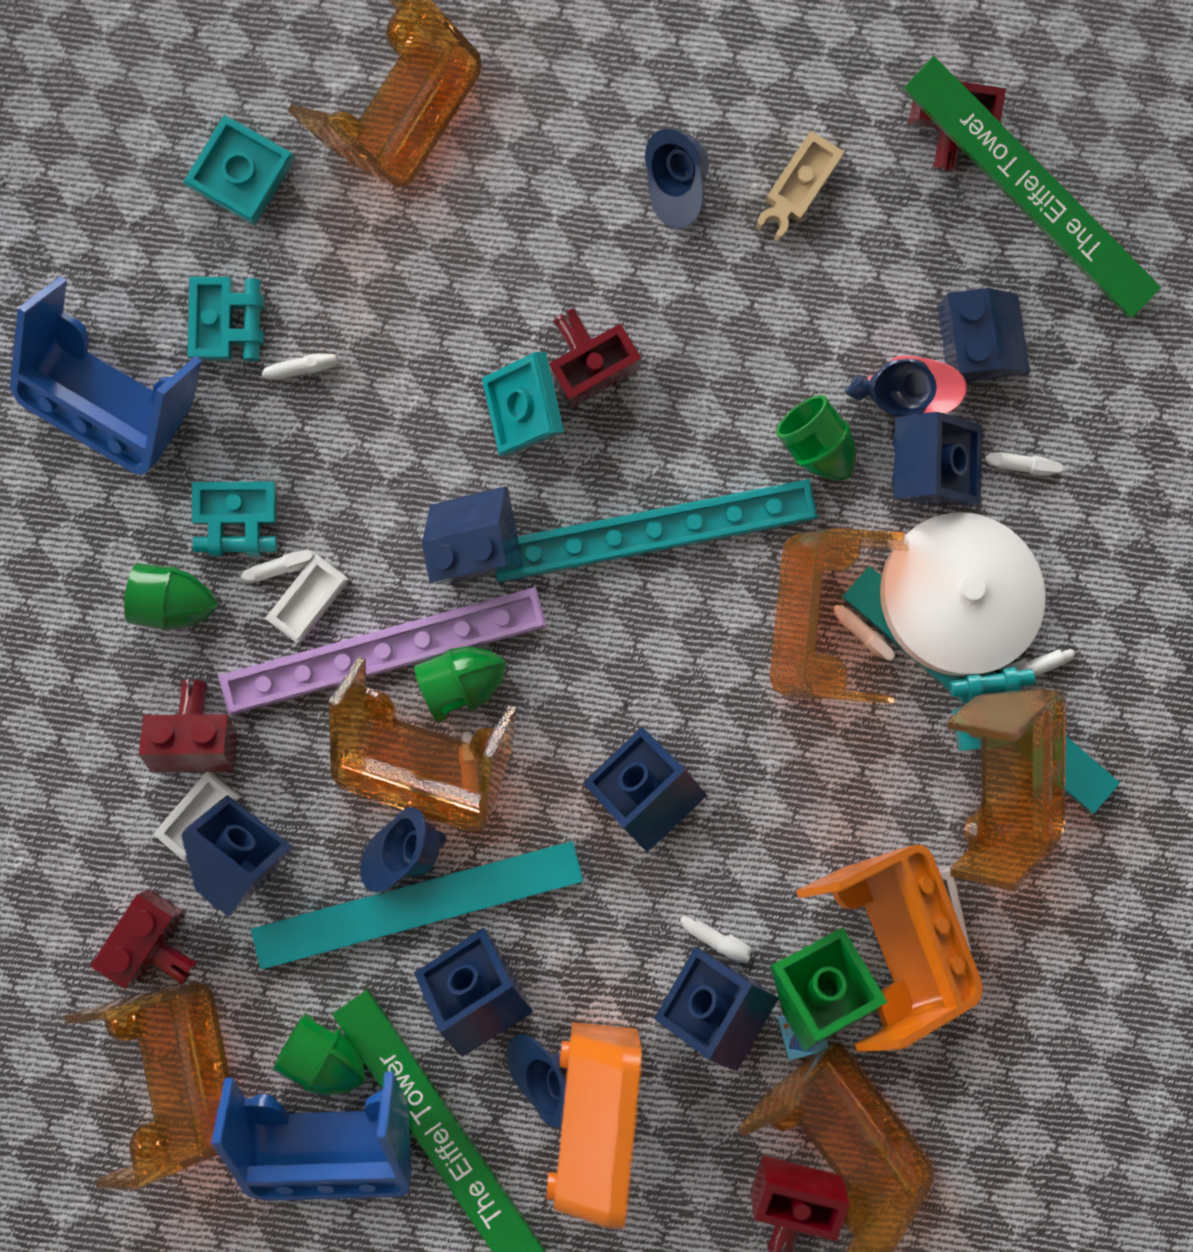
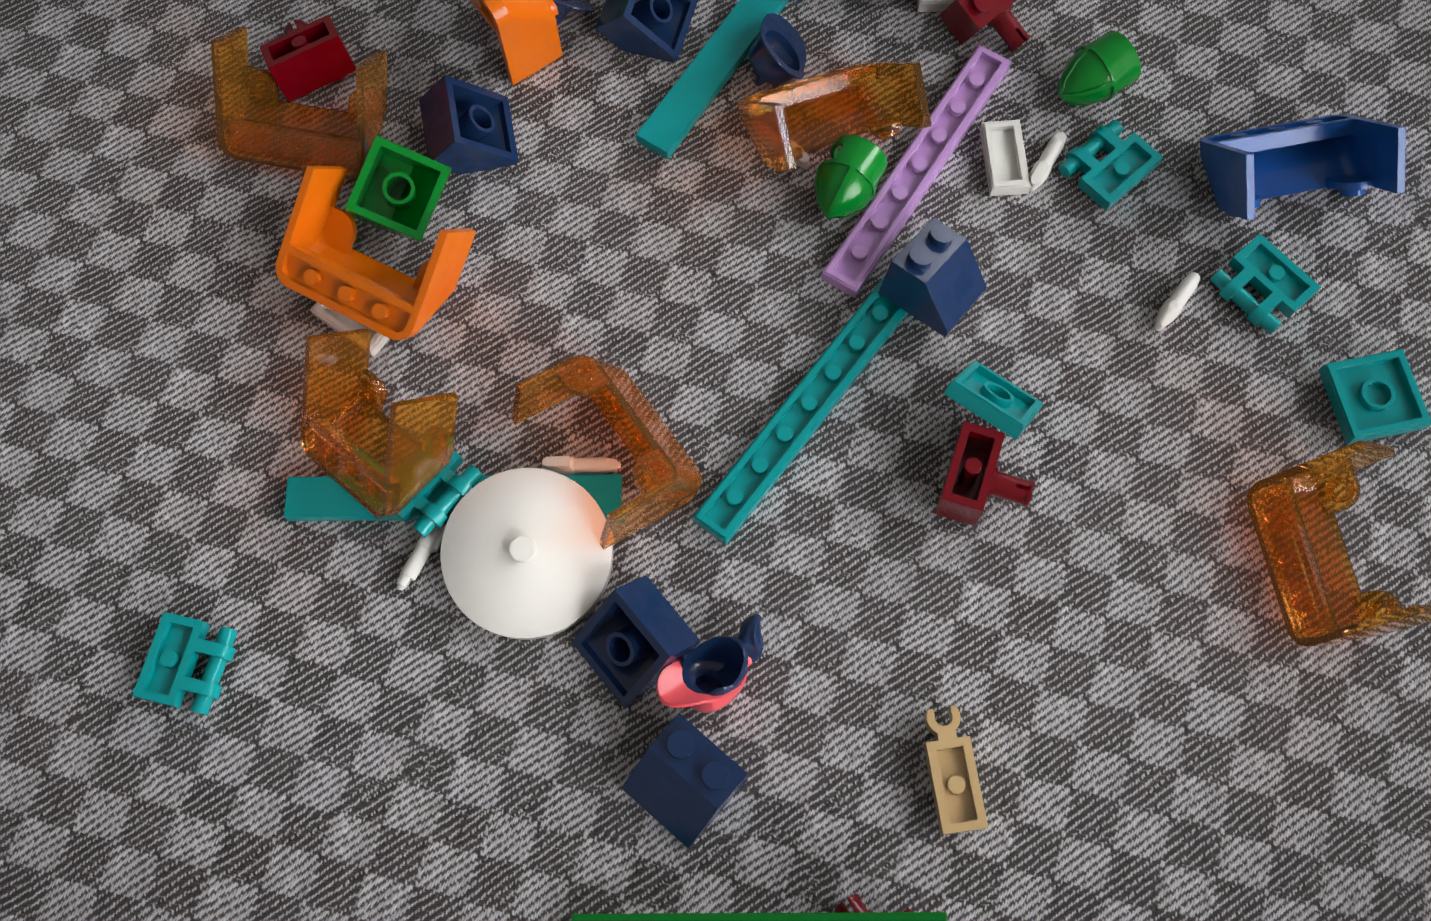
camera: 145 degrees right, 15 degrees down
(645, 789) = (647, 221): dark blue slope -> none
(676, 176) = (1057, 689): dark blue piece -> none
(726, 945) = (495, 177): white piece -> none
(819, 439) = (746, 568): green helmet -> none
(1033, 465) = (555, 711): white piece -> none

